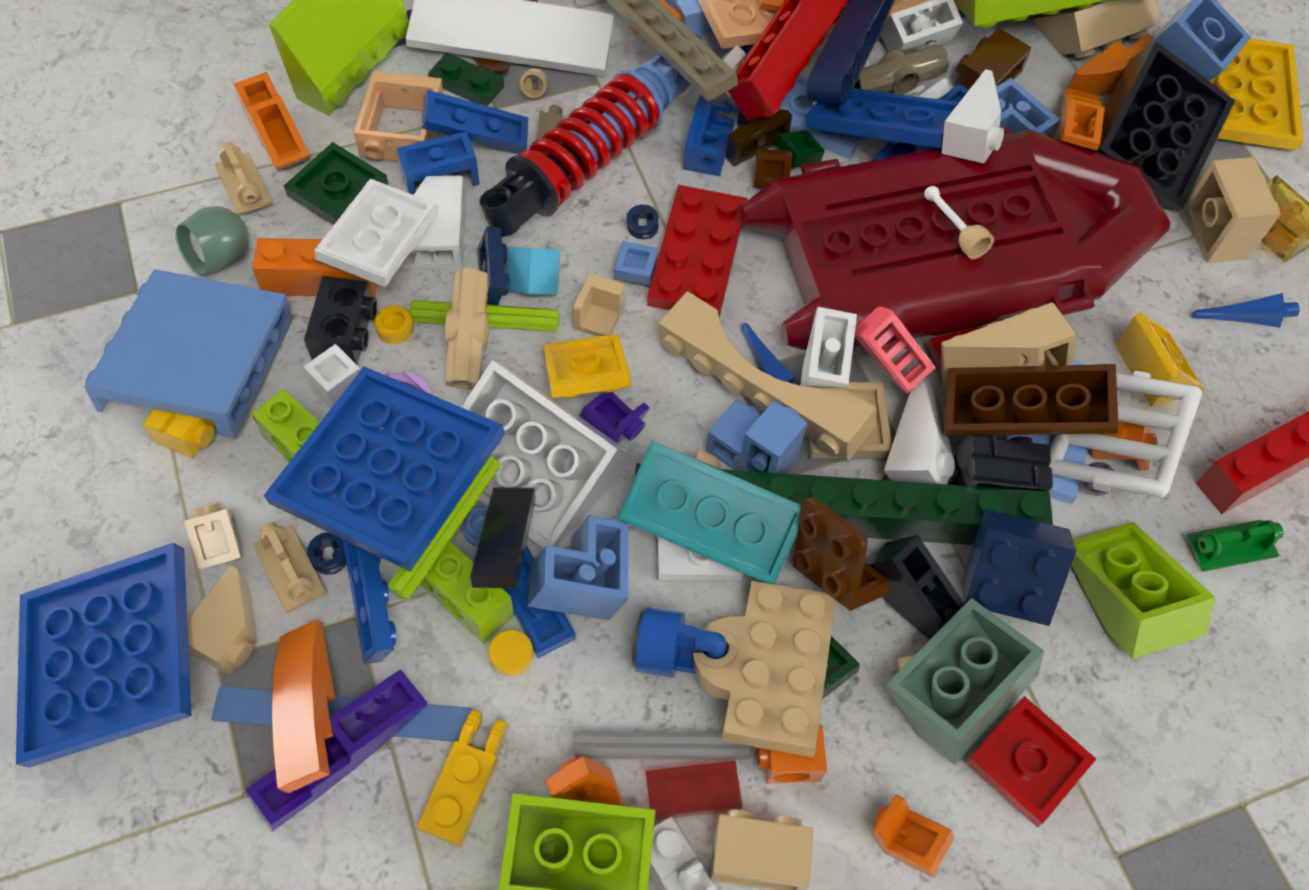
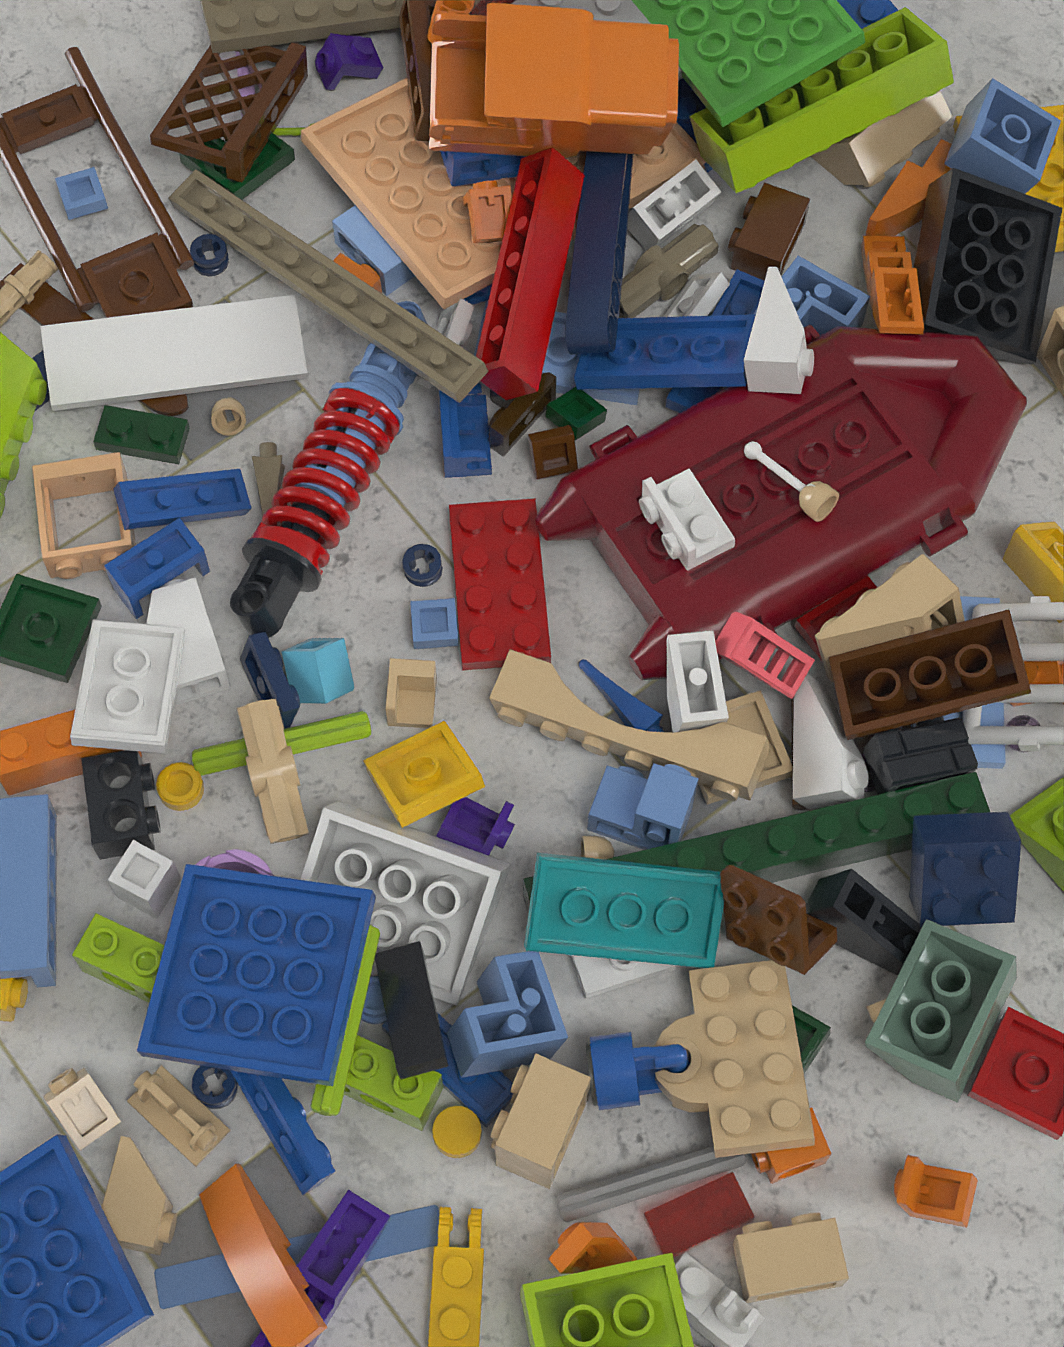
camera: 15 degrees left, 5 degrees up
(581, 661) = (541, 1121): none -> tan brick
(860, 227) = (686, 518): none -> white bracket

